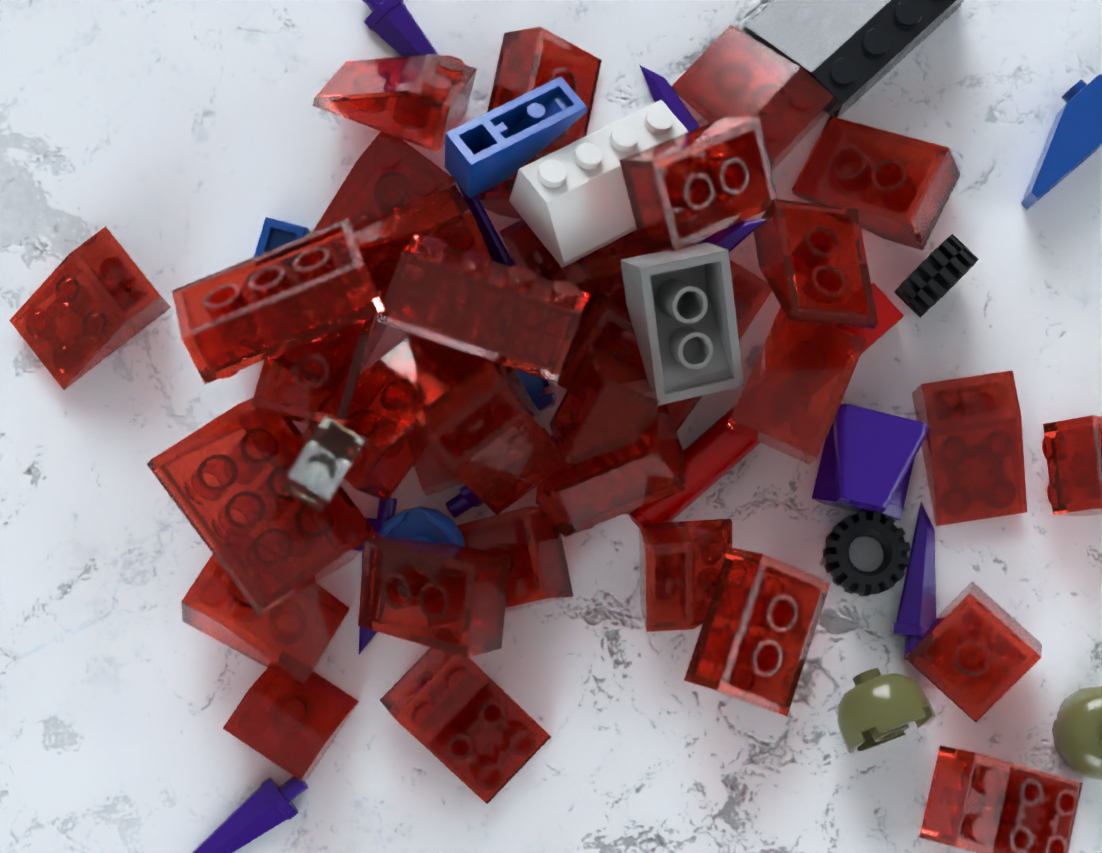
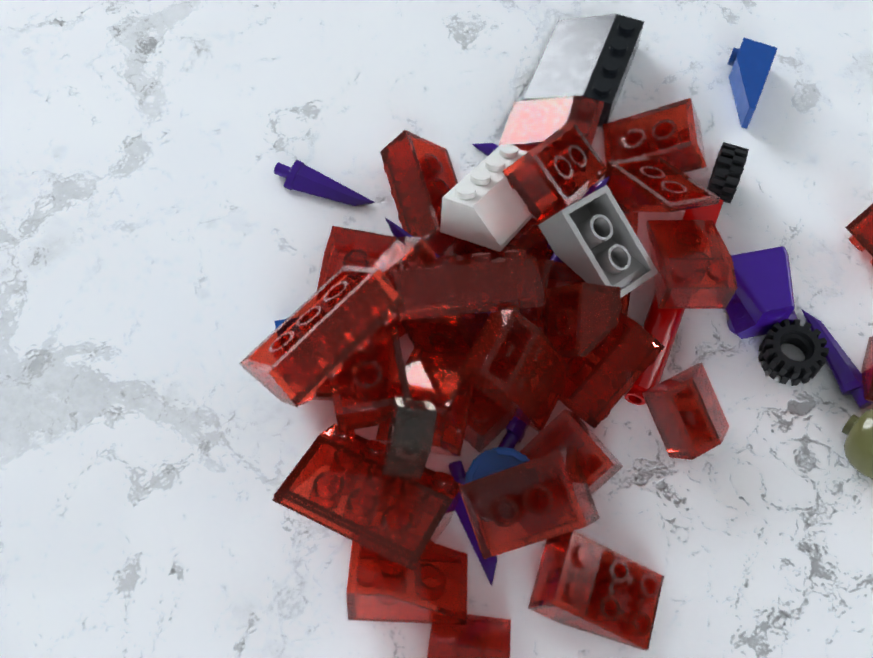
camera: 30 degrees left, 20 degrees down
(88, 308) = (172, 428): clear red slope -> none
(402, 96) = (342, 203): clear red slope -> none
(510, 136) = (419, 192): blue slope -> none
(757, 630) = (764, 425): clear red brick -> none
(973, 447) = (819, 257): clear red slope -> none

